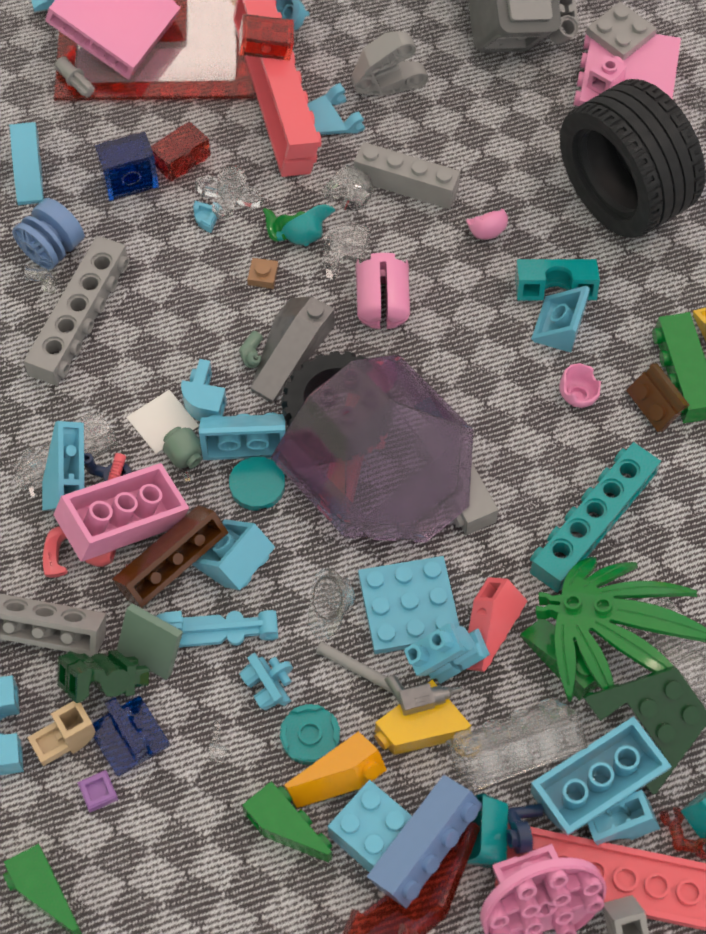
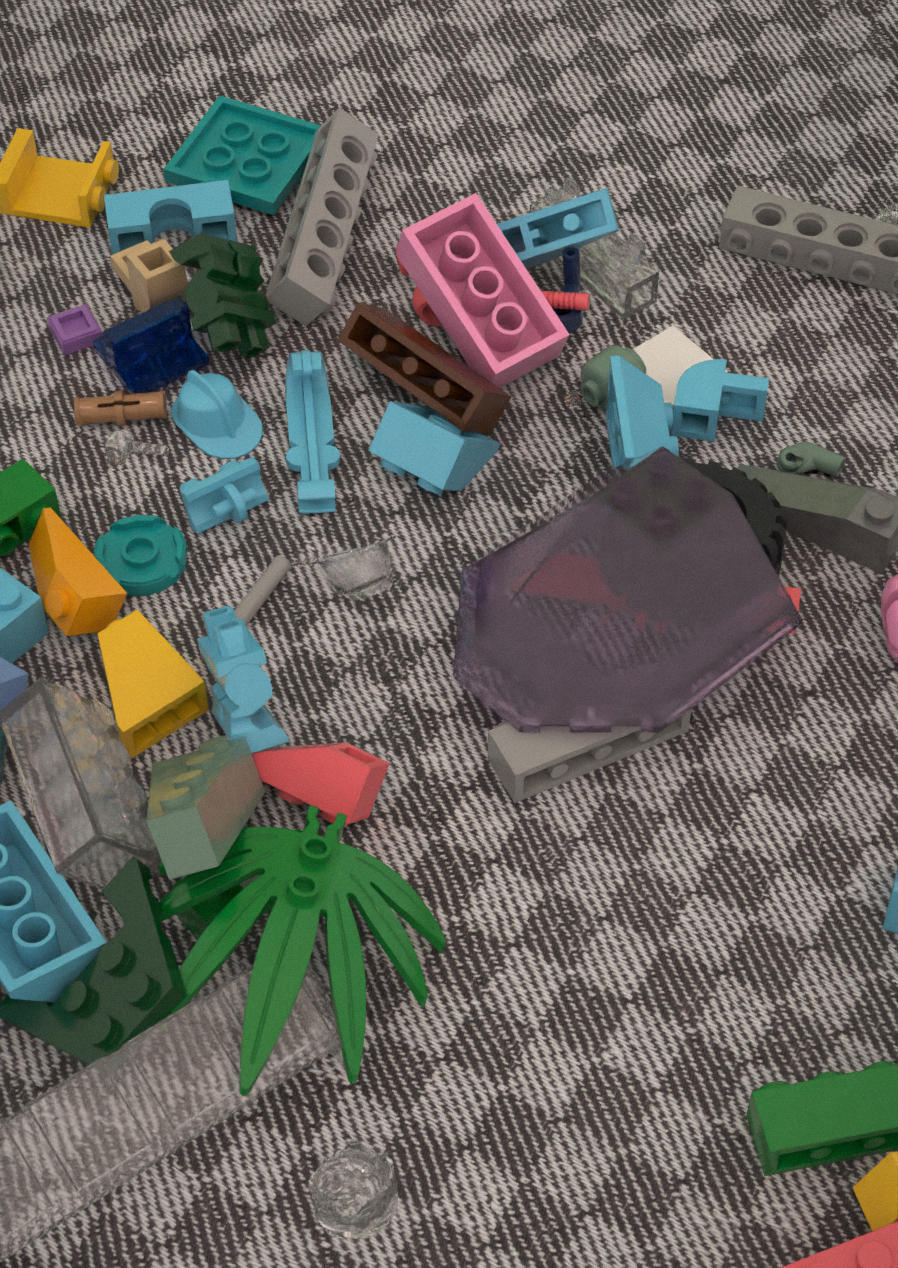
camera: 90 degrees right, 10 degrees down
(149, 640) = (281, 348): sand green tile -> none
(182, 752) = (120, 408): none -> medium nougat pin
(190, 692) = (216, 416): none -> medium azure piece
(257, 483) = (557, 470): teal tile -> none
(406, 602) = (354, 676): medium azure plate -> none
(419, 697) = (168, 656): flat silver piece -> none
(538, 668) = (202, 804): none -> sand green wedge
(579, 386) = (793, 919): bright pink hair -> none
(633, 461) = (574, 993): teal brick -> none
(657, 397) = (781, 1050): reddish brown plate -> none

